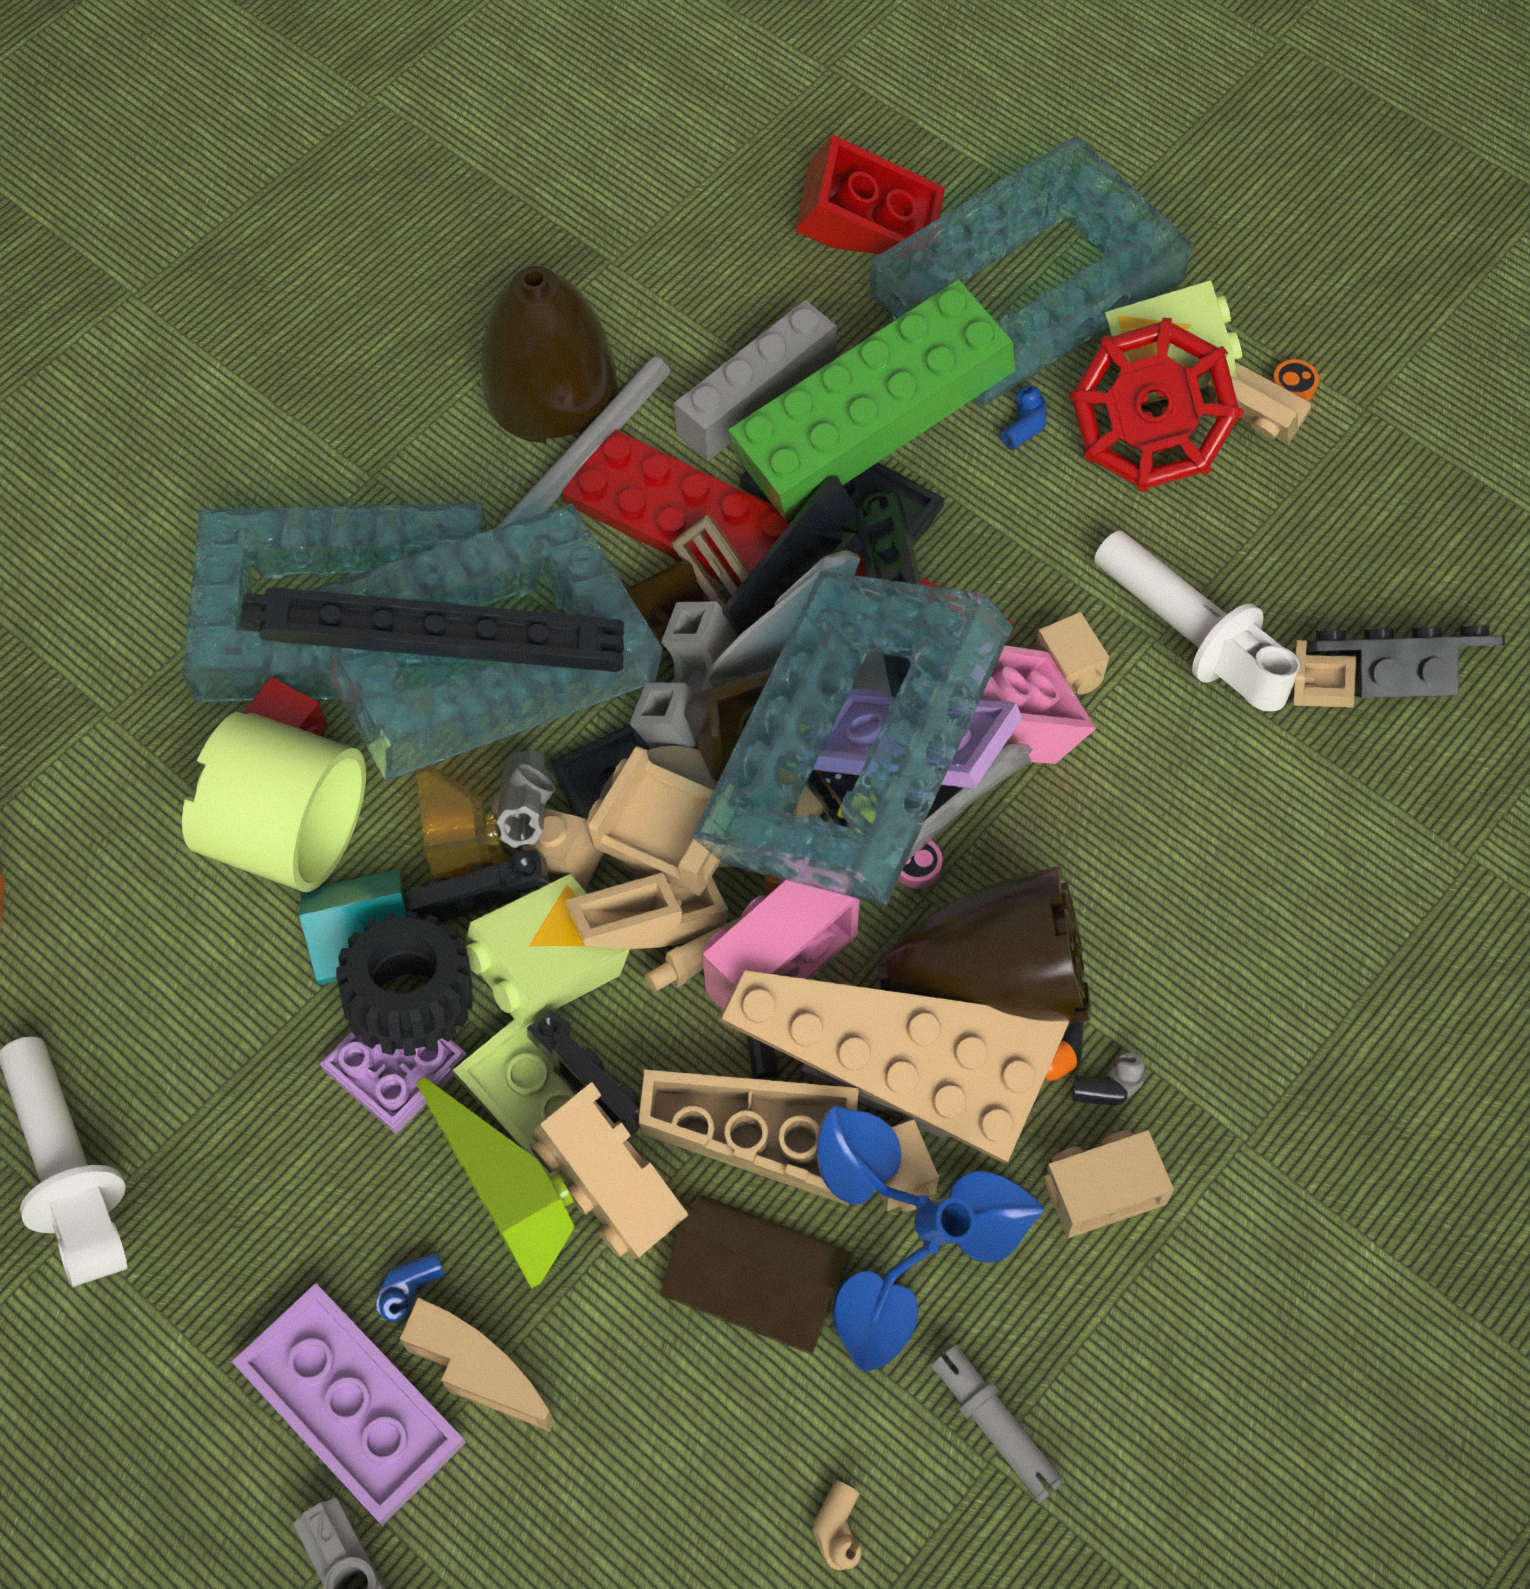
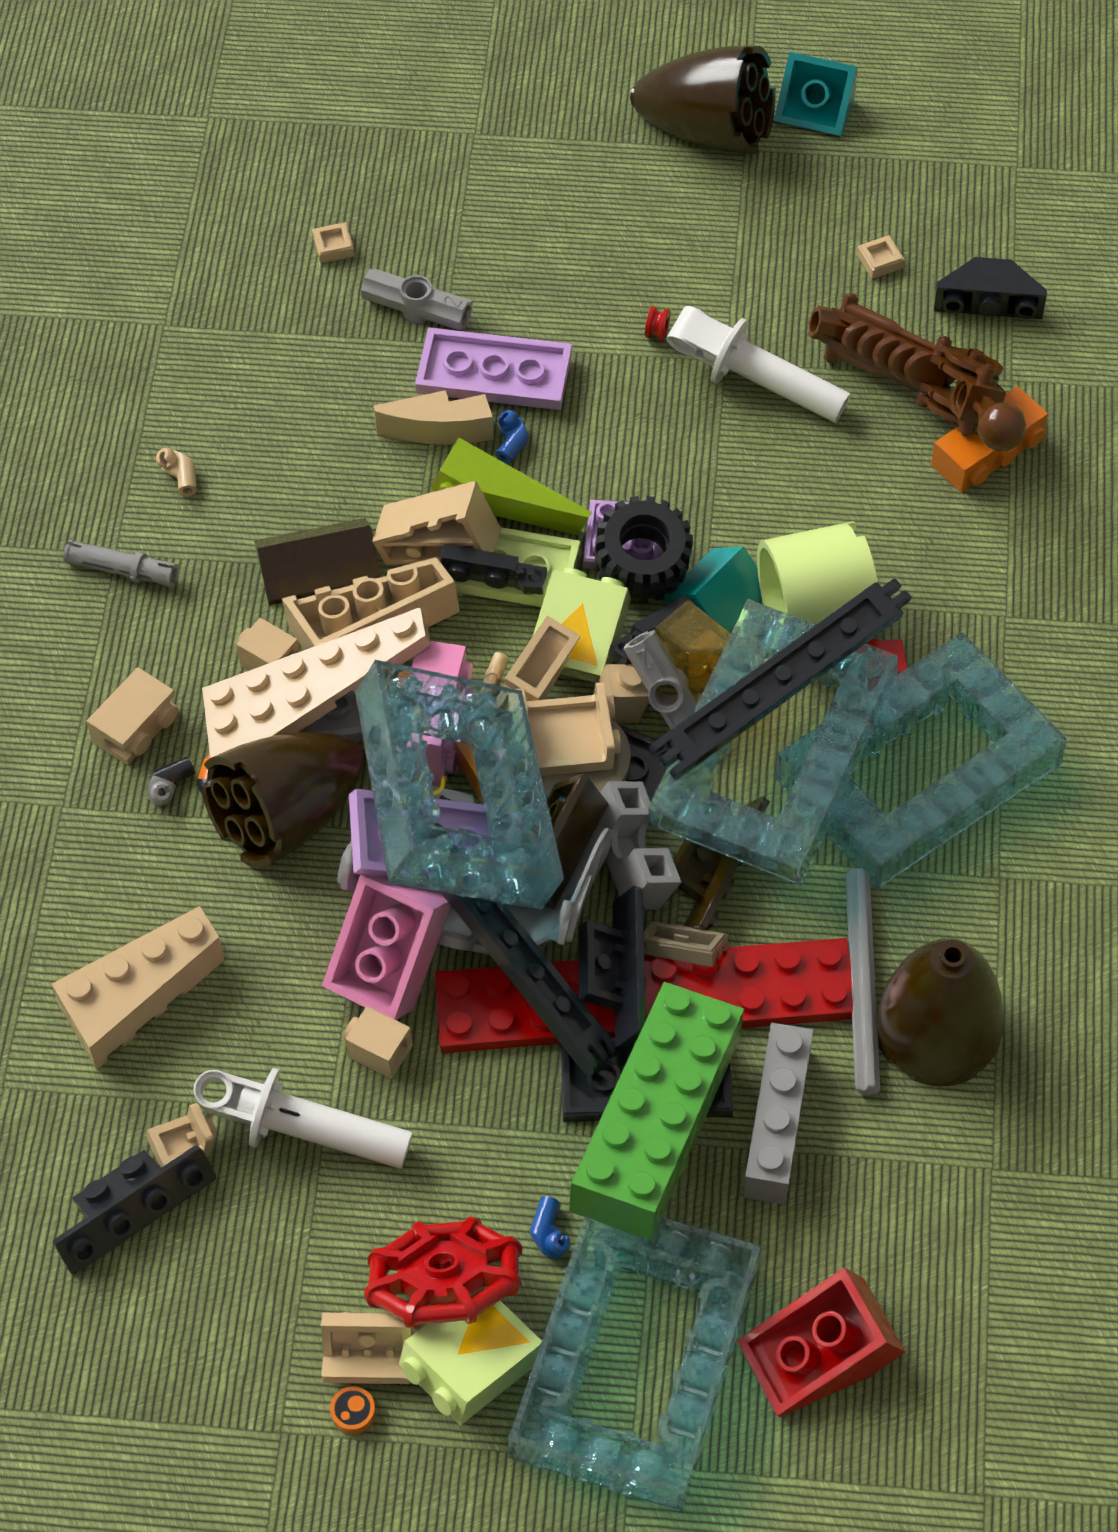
camera: 145 degrees right, 5 degrees down
(106, 1325) = (657, 323): none -> red bush
(981, 1215) = (229, 567): blue plant -> none
(1282, 855) = (137, 982): none -> tan wedge

